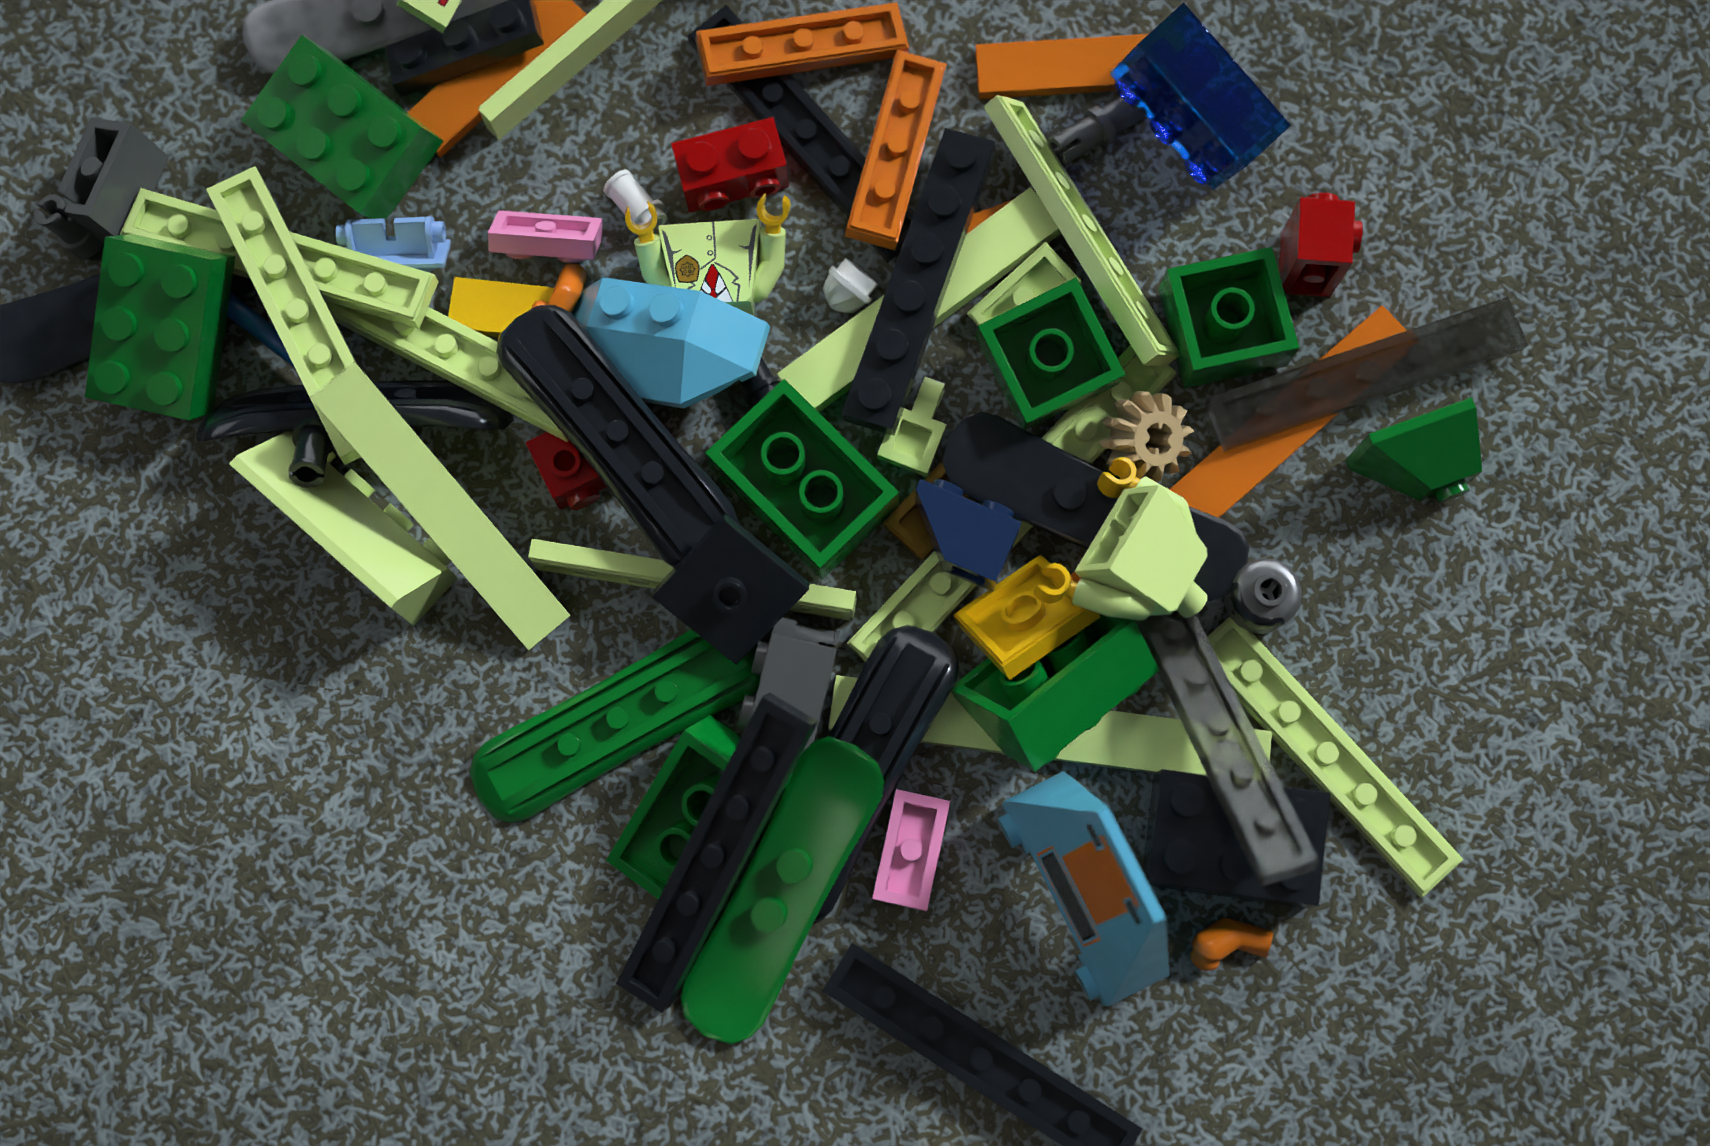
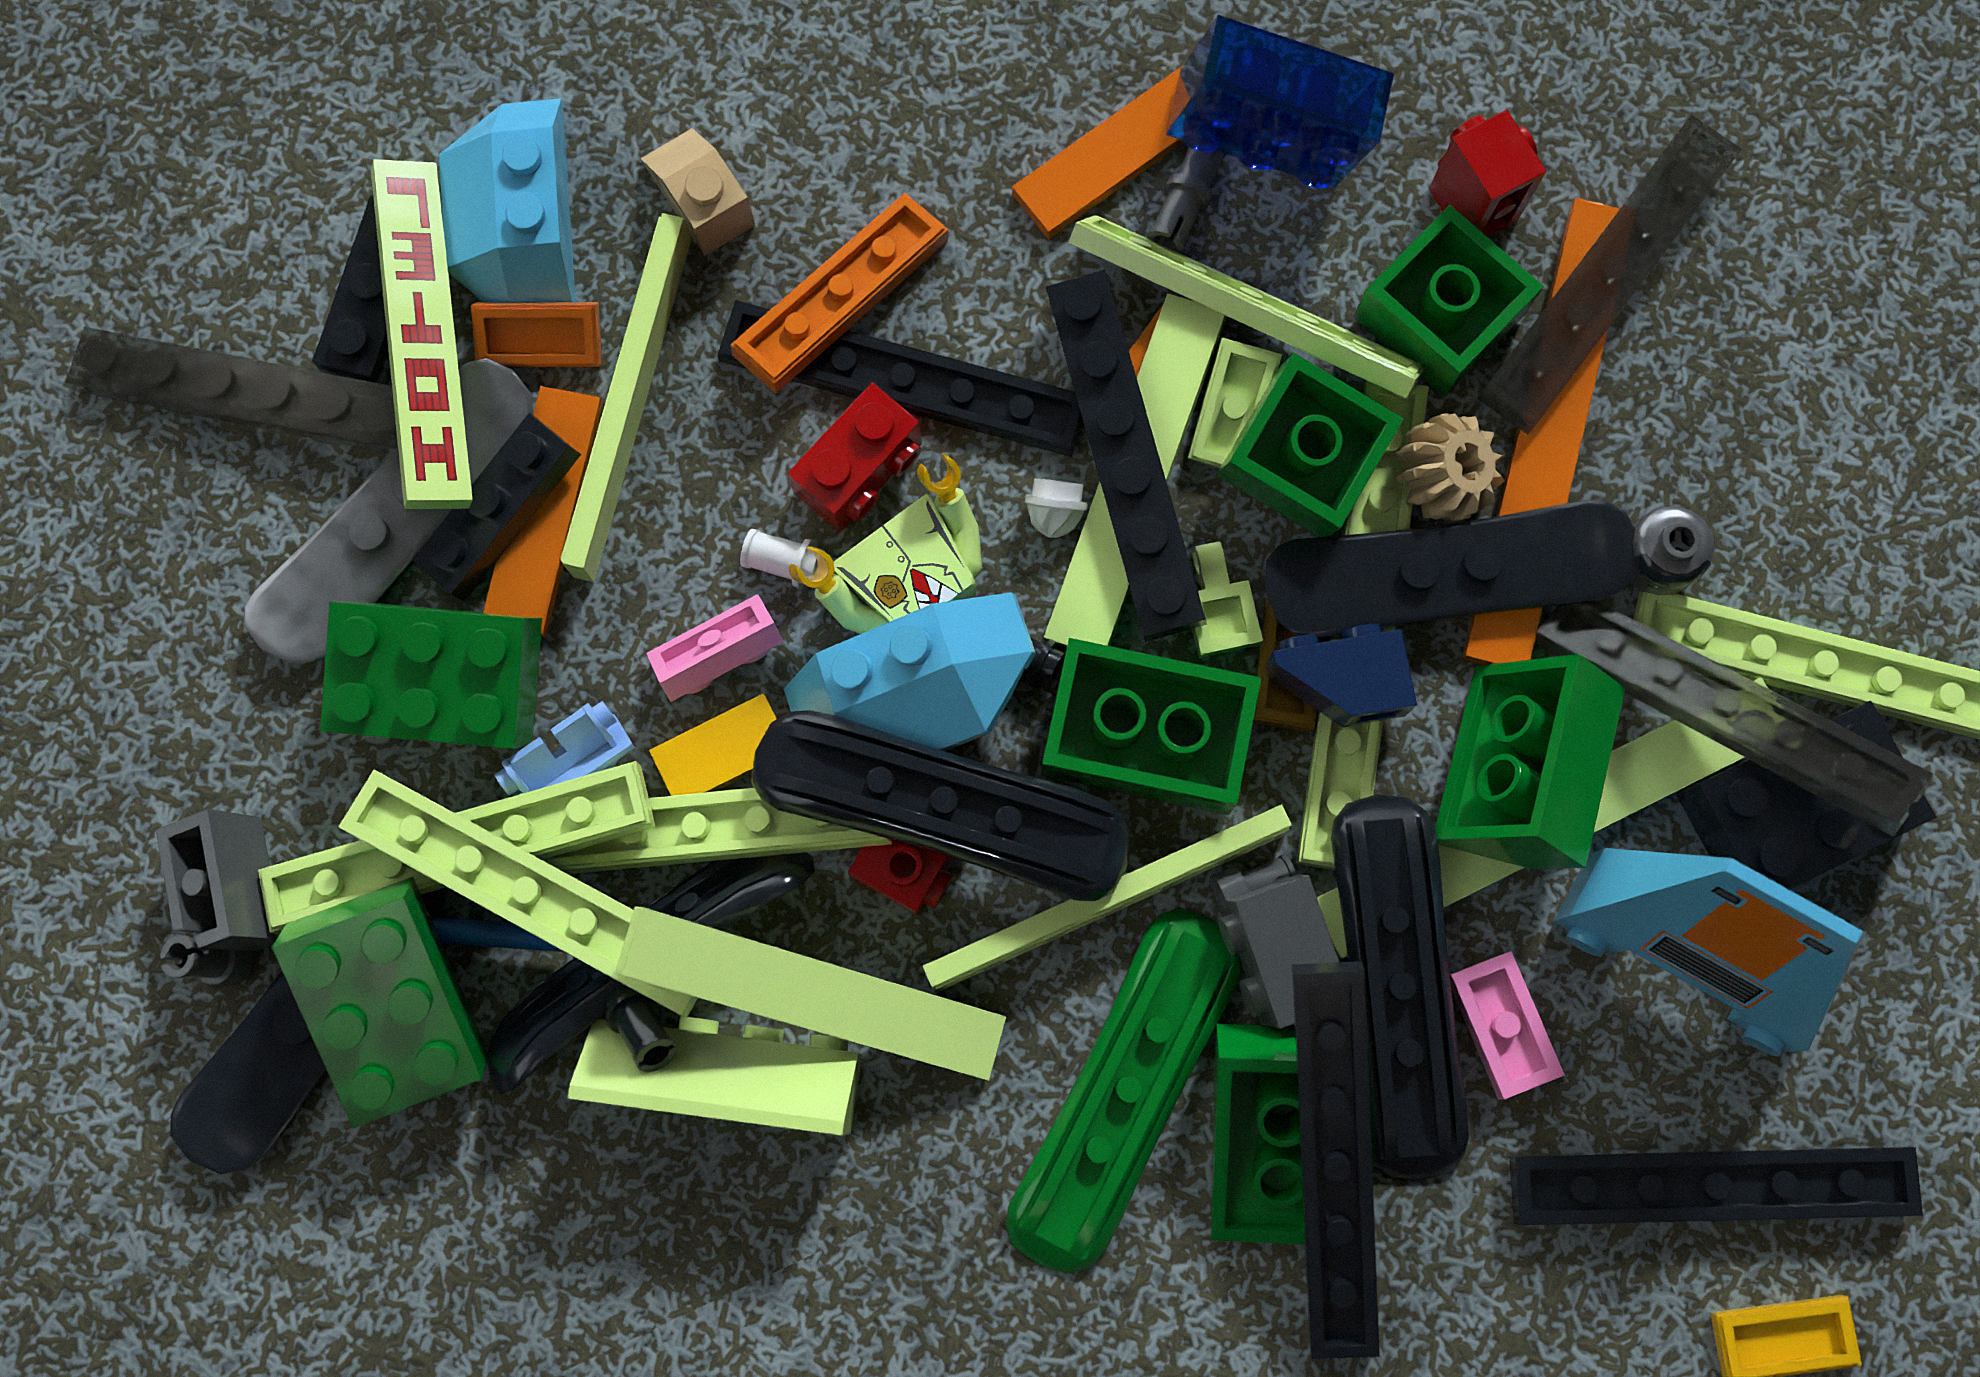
camera: 35 degrees left, 0 degrees up
(567, 288) = (777, 689): orange arm -> none
(730, 589) = (1163, 884): black plate -> none
(782, 890) = (1420, 1156): green piece -> none
(895, 150) = (1008, 340): orange tile -> none
(1017, 626) = (1462, 720): yellow plate -> none
(1140, 557) = (1542, 584): yellowish green torso -> none
(1225, 937) = (1860, 900): orange arm -> none
(1424, 454) = (1726, 314): green slope -> none

